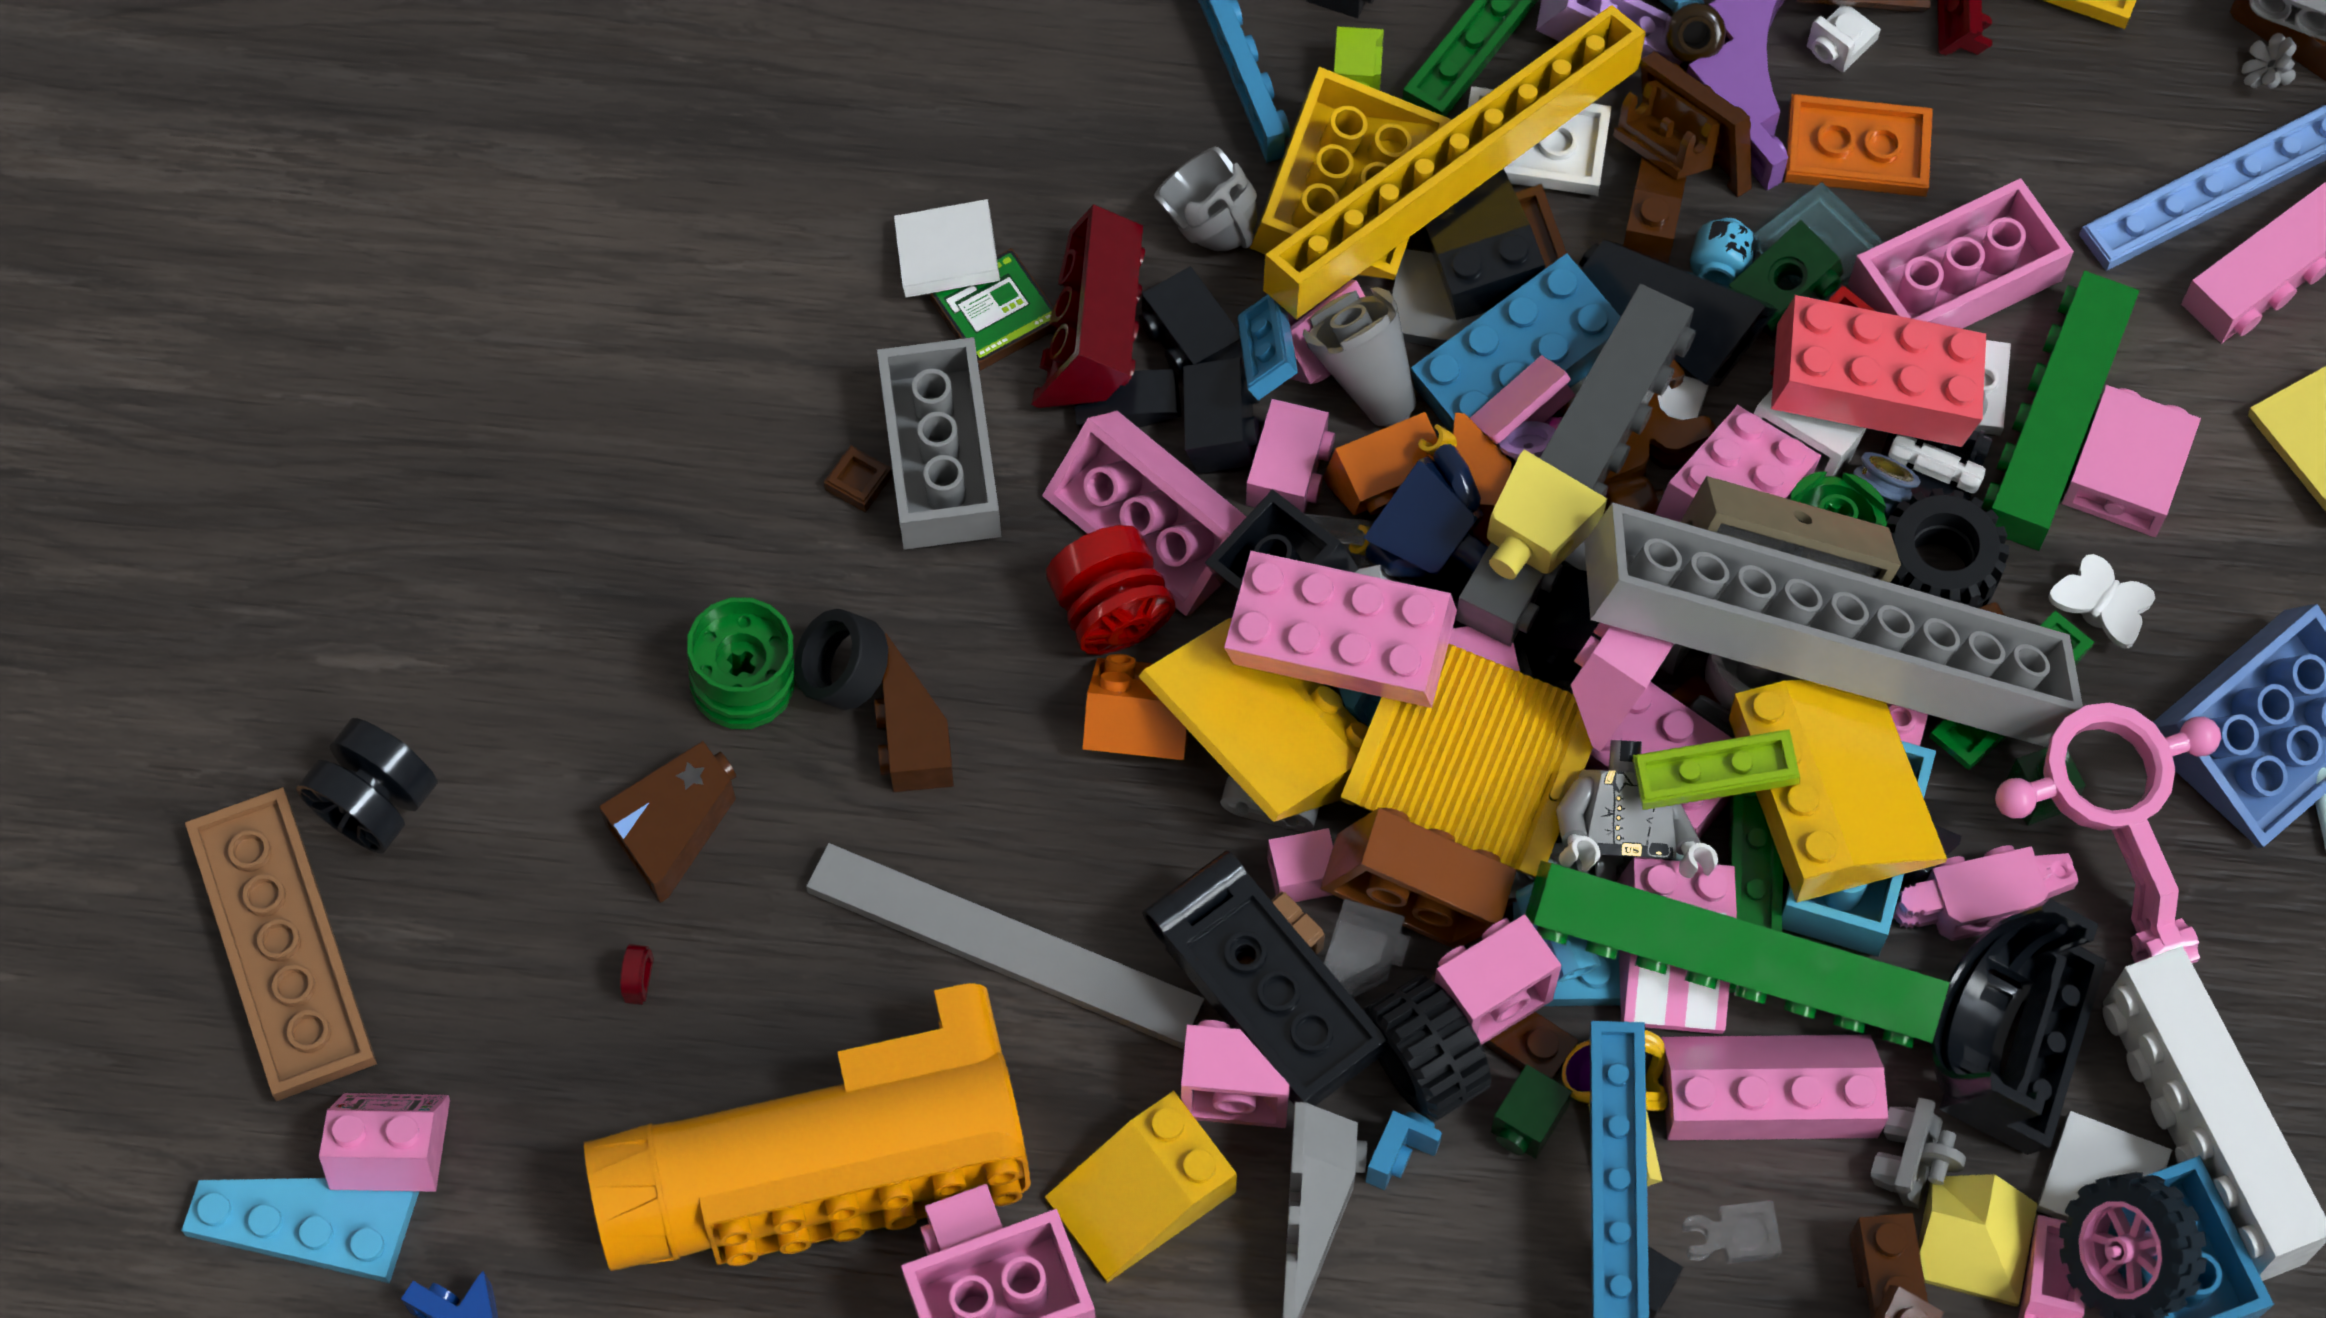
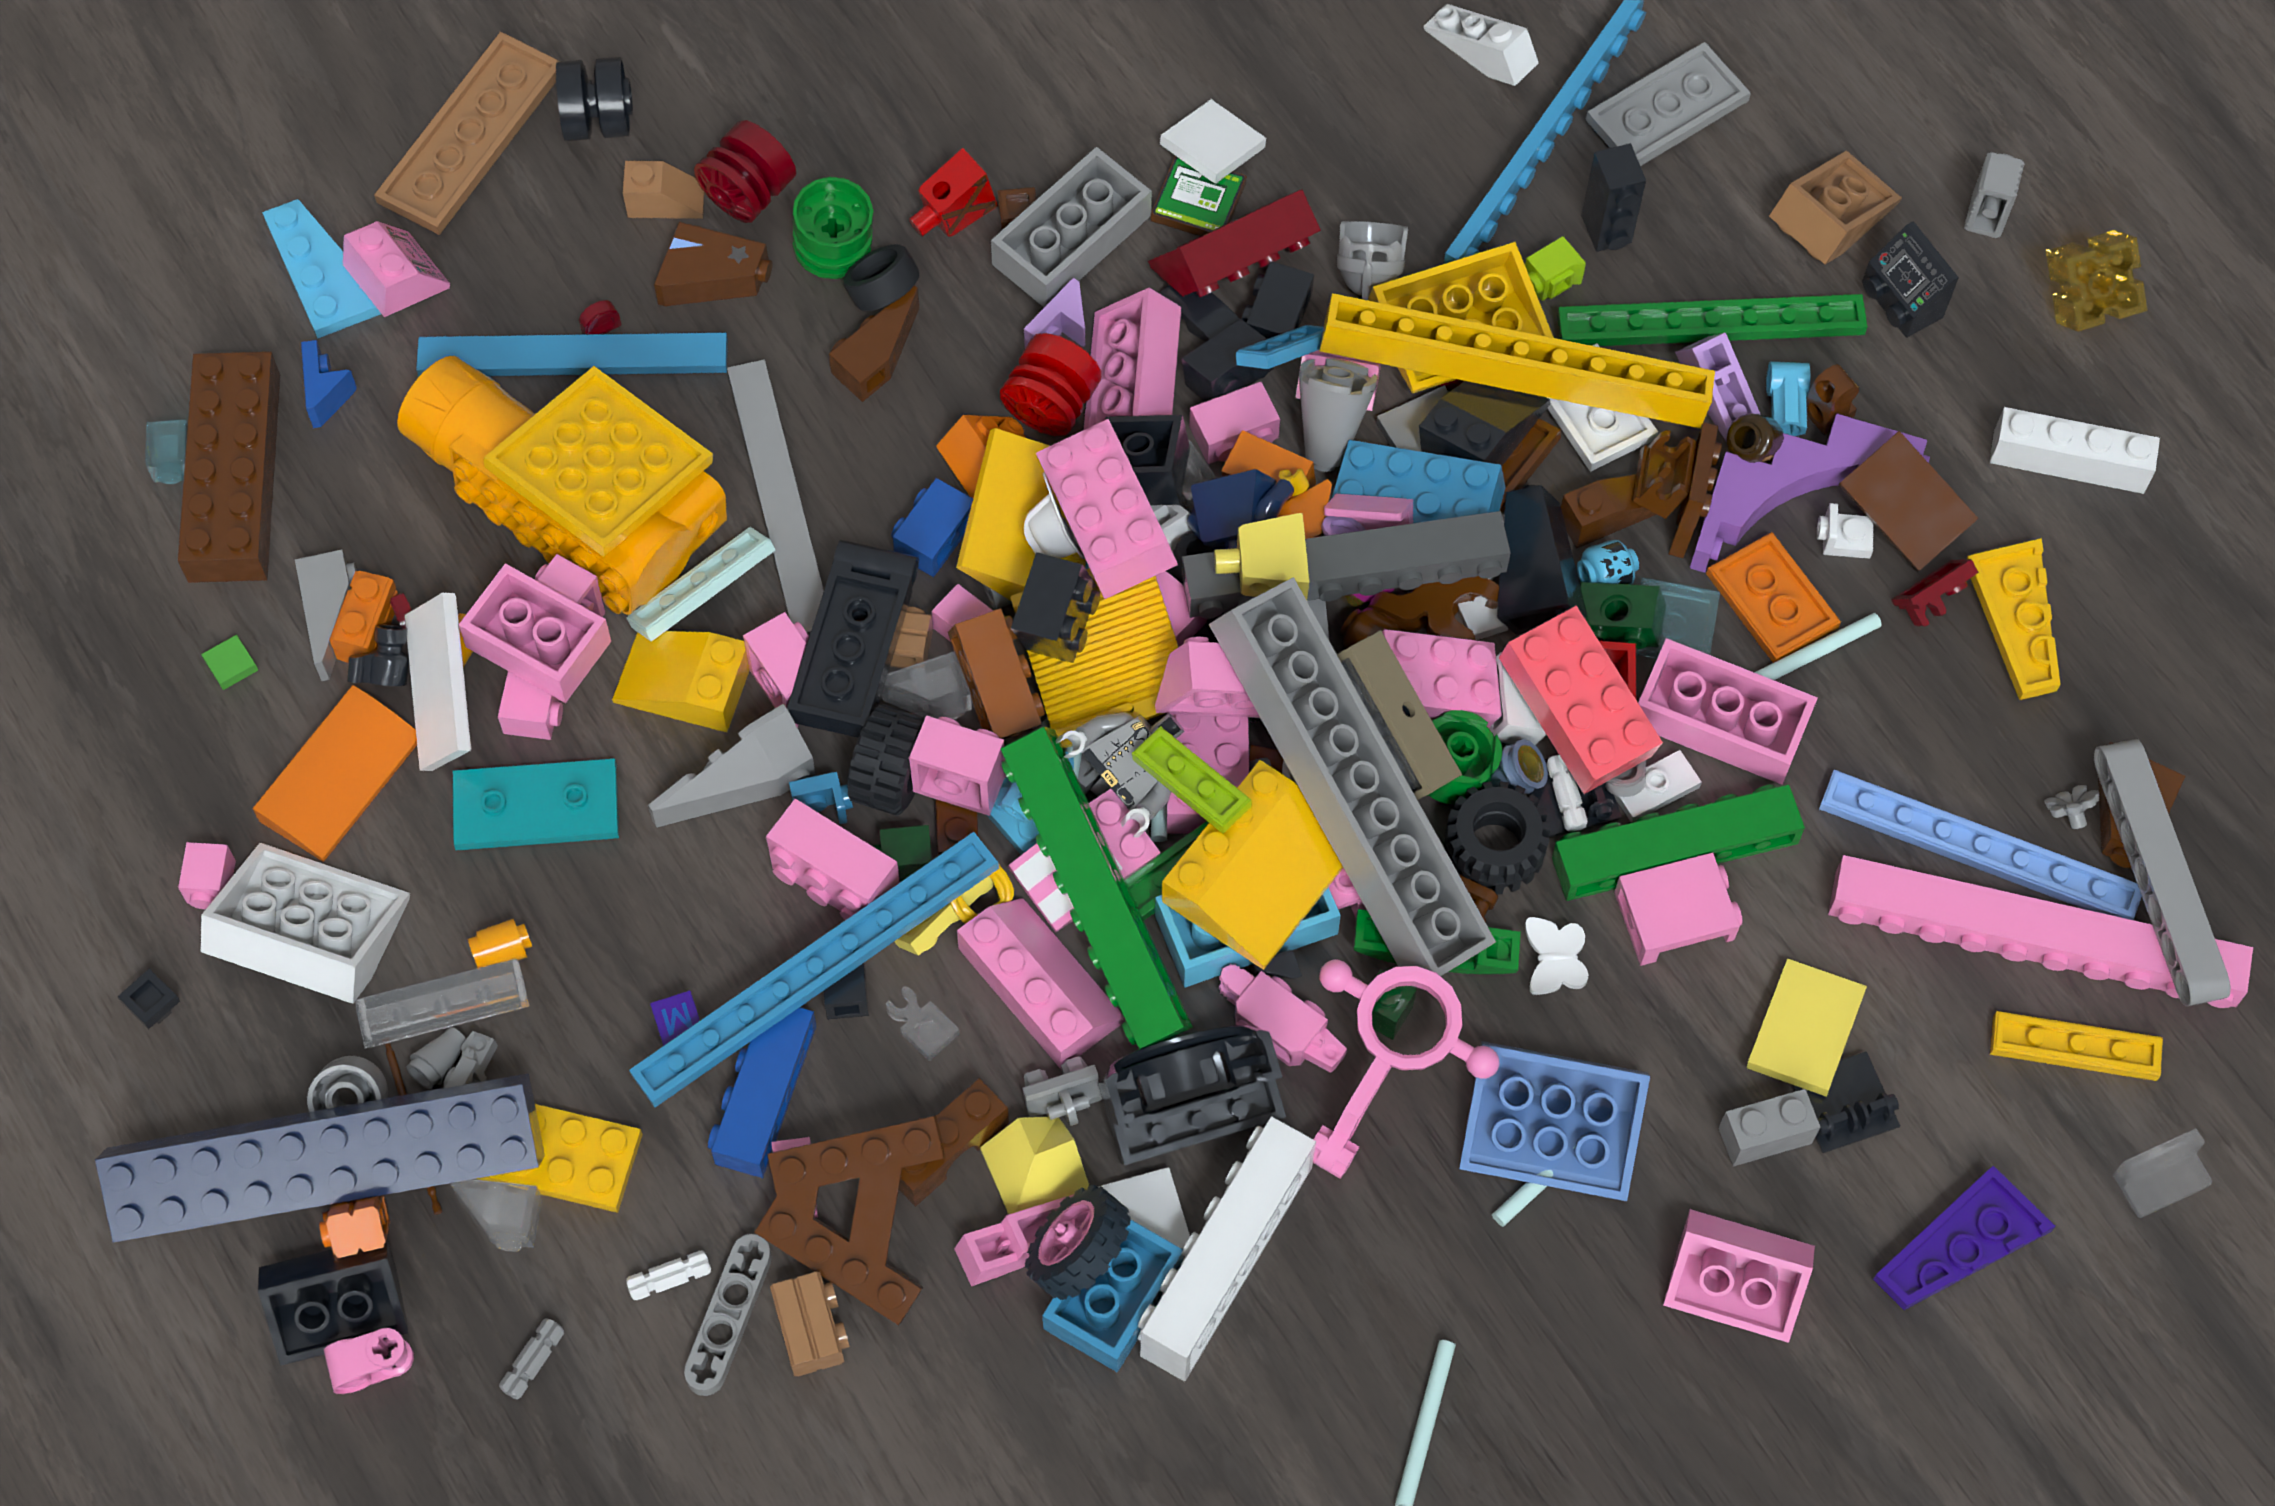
camera: 50 degrees right, 0 degrees up
(533, 802) = (661, 191): none -> medium nougat slope
(596, 698) = (745, 171): none -> dark red wheel
(648, 1033) = (578, 353): none -> dark azure tile
(804, 524) = (954, 197): none -> red torso
(863, 1081) = (598, 461): none -> yellow plate
(1031, 523) = (1060, 315): none -> lavender slope
(1047, 1092) = (700, 583): none -> light aqua tile
(1171, 818) = (933, 526): none -> blue brick
(1309, 696) = (1048, 531): none -> white piece
(1418, 755) = (1055, 608): none -> black brick
(1501, 1190) = (828, 861): none -> bright pink brick
(1943, 147) = (1821, 647): none -> light aqua bar

